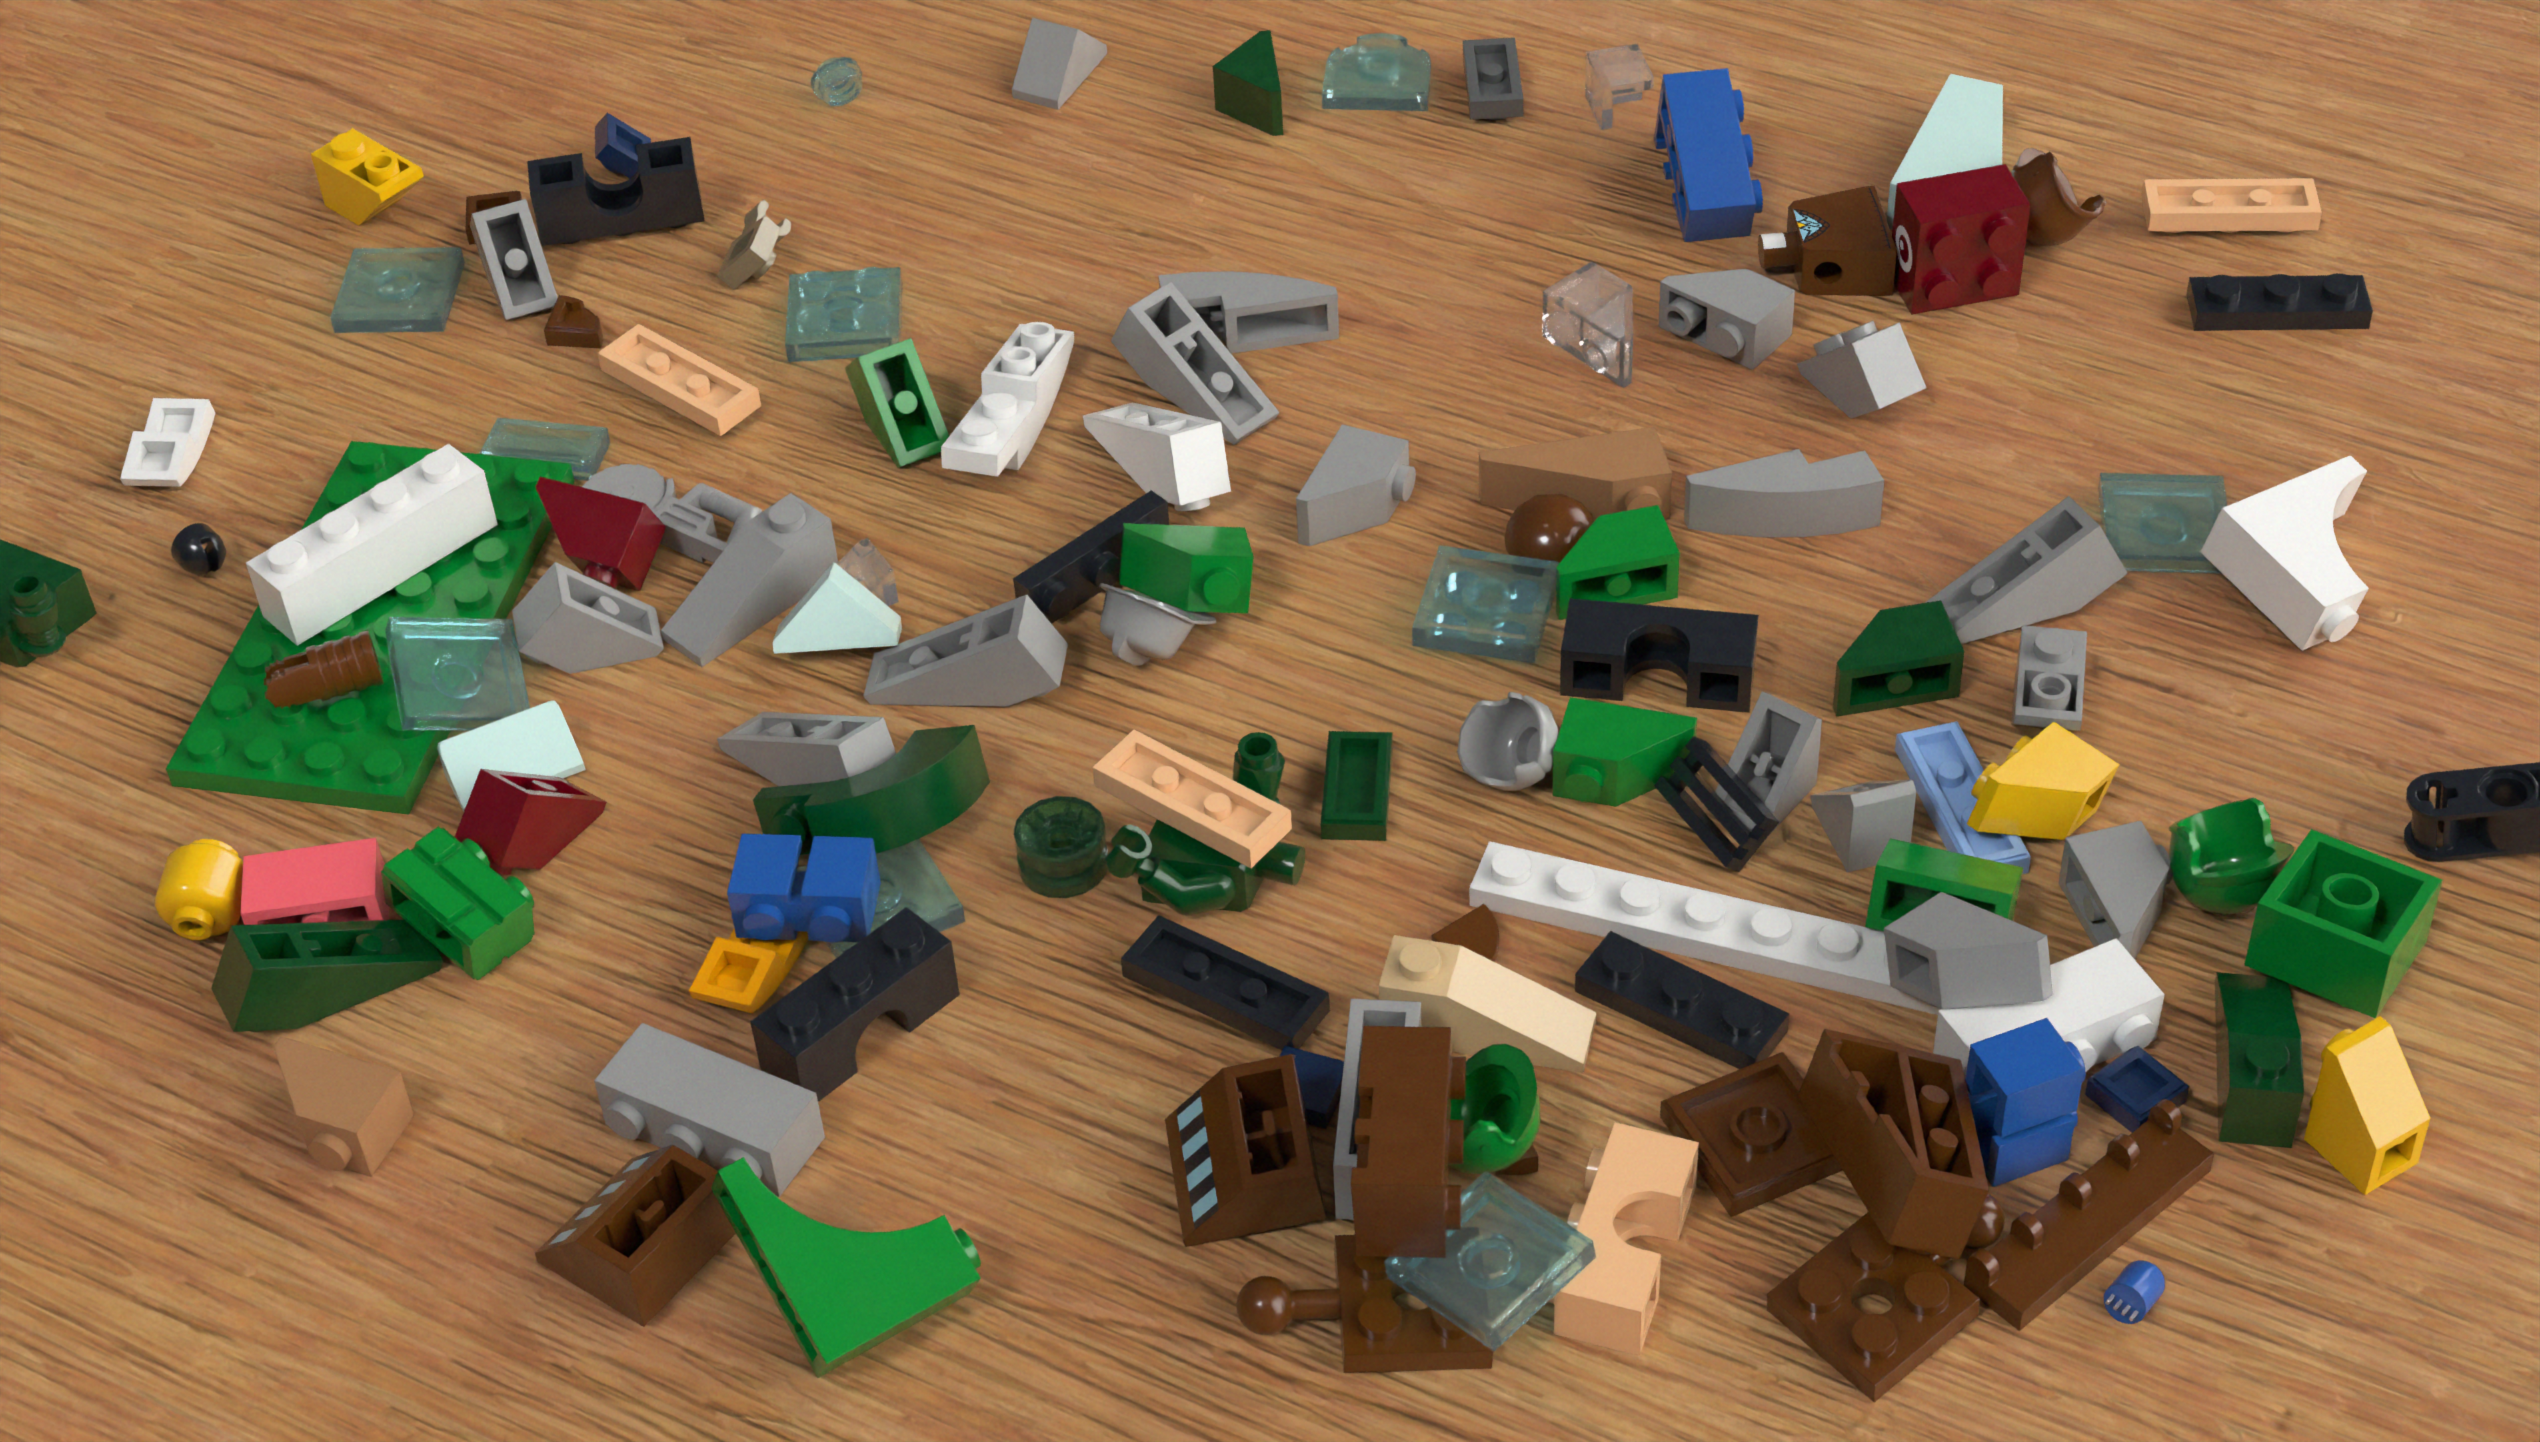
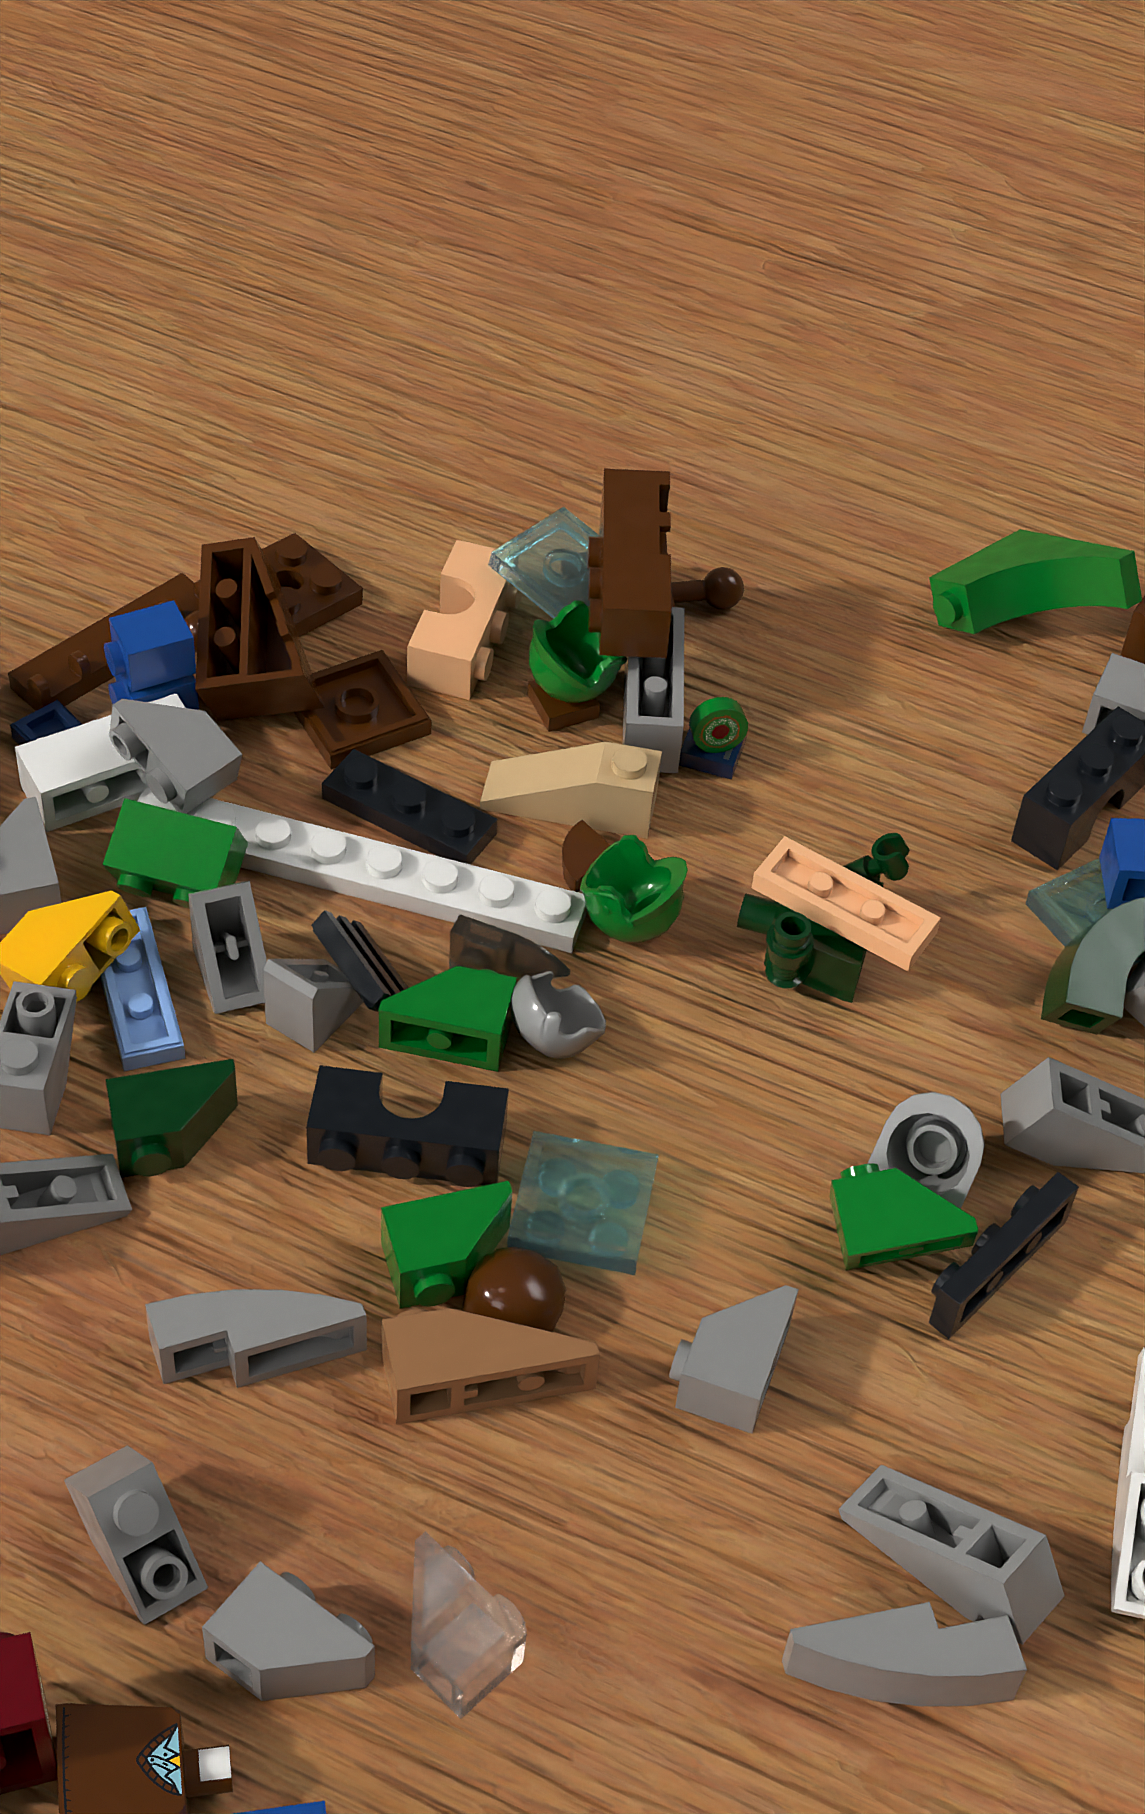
camera: 170 degrees right, 5 degrees up
(1061, 847) = (964, 940): clear green wheel -> none
(1165, 452) = (971, 1417): white slope -> none
(1225, 984) = (785, 810): black plate -> none
(1244, 1154) = (748, 660): reddish brown slope -> none
(1312, 1050) = (718, 724): none -> green tile
(1357, 786) = (697, 1015): dark green tile -> none
(1421, 852) = (632, 893): none -> green helmet
(1572, 814) = (495, 949): none -> clear smoke plate
(2134, 1292) = (95, 599): blue piece -> none

